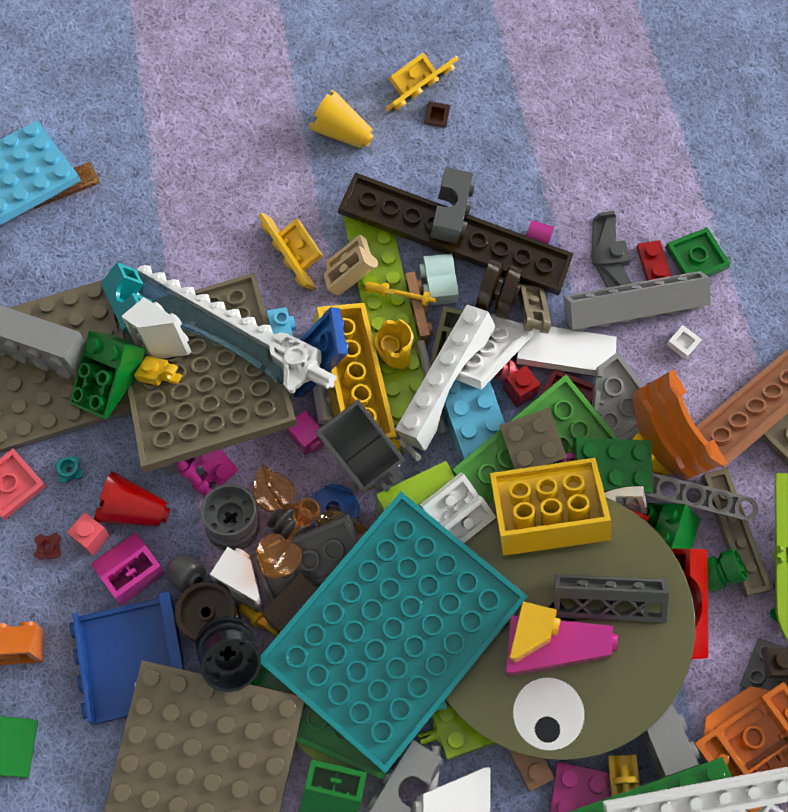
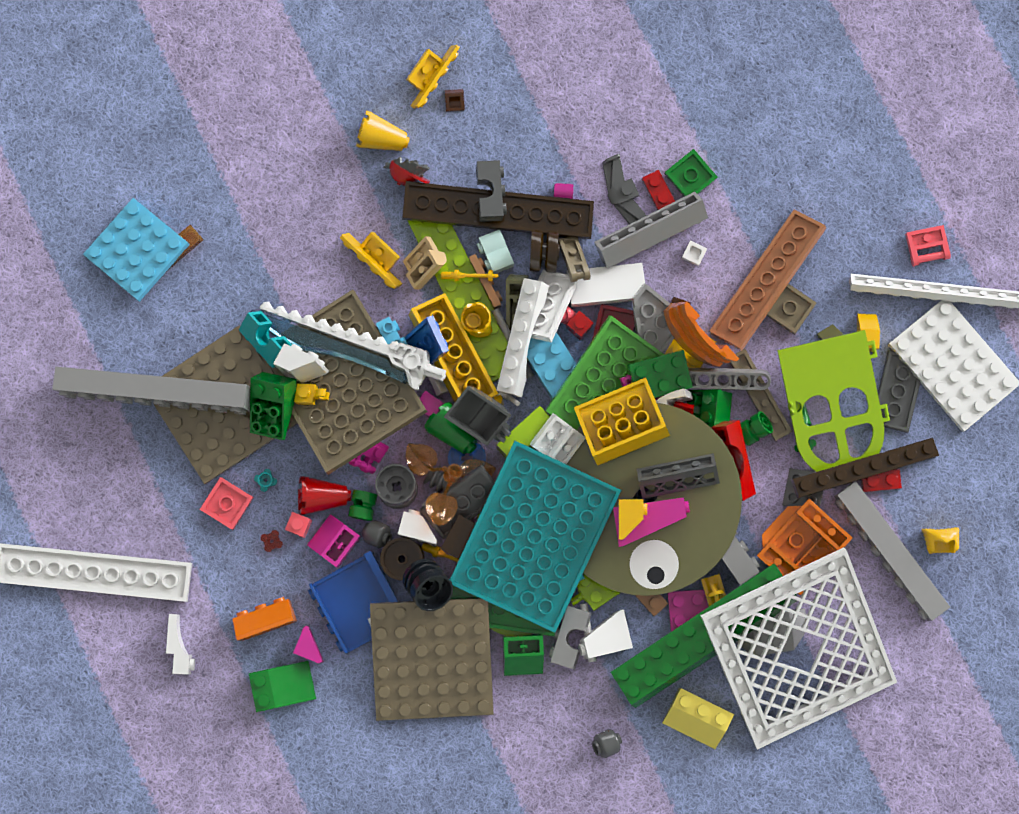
camera: 15 degrees left, 15 degrees up
(42, 698) = (307, 646): none -> dark pink slope
(178, 533) = (362, 505): none -> green wheel
(321, 467) = (449, 432): none -> green cone
(361, 162) = (406, 171): none -> hair
(533, 440) = (598, 375): dark tan plate -> none

